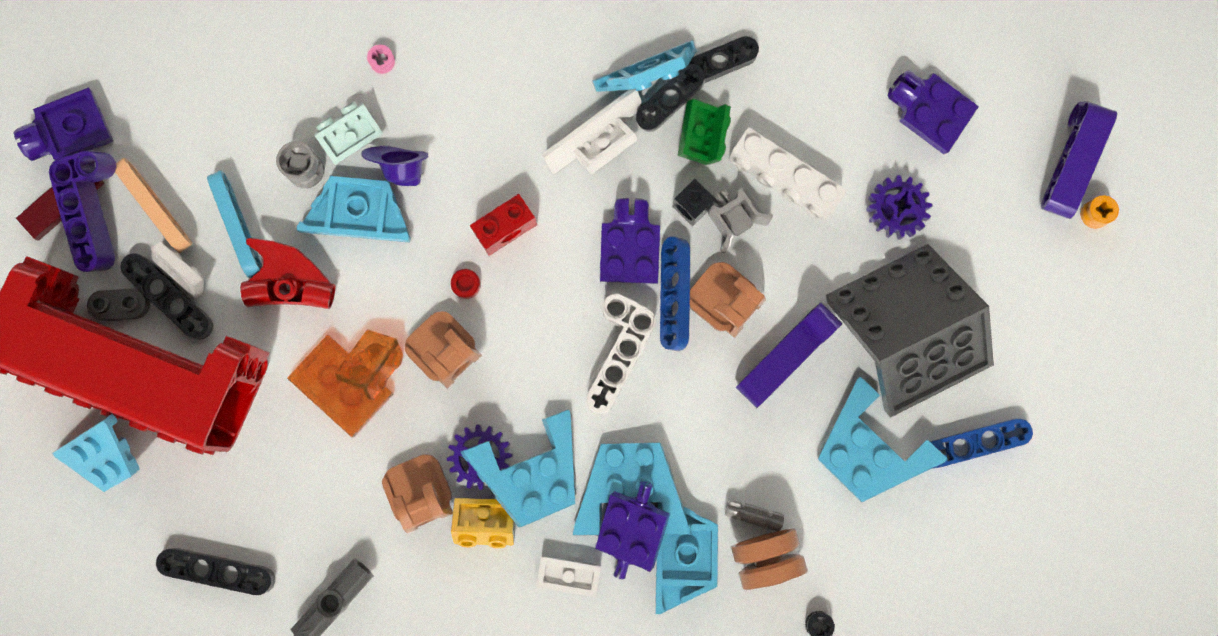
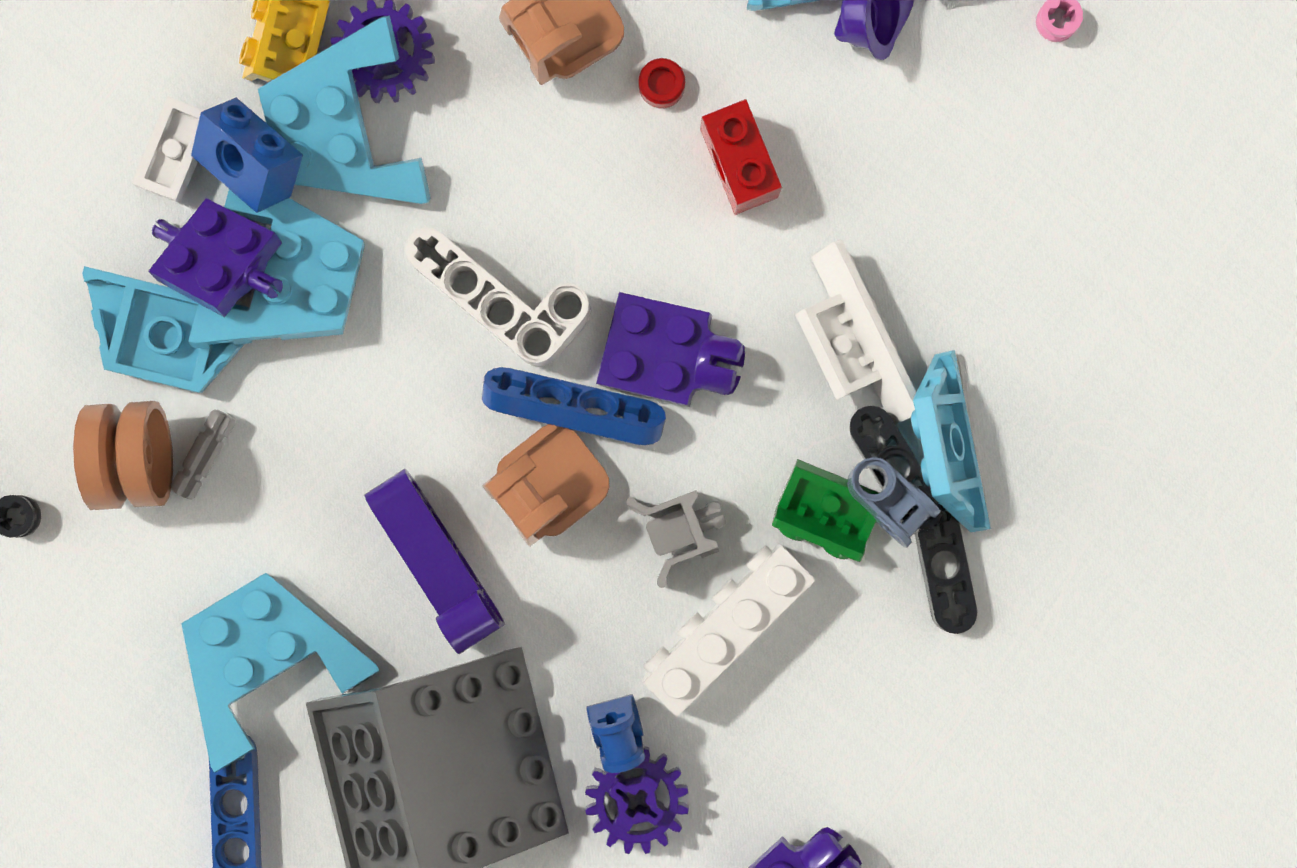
camera: 105 degrees right, 5 degrees up
(564, 525) = (246, 154): none -> blue brick
(693, 202) = (713, 467): black brick -> none
(694, 88) = (893, 501): none -> sand blue piece
(864, 225) = (617, 733): none -> blue piece

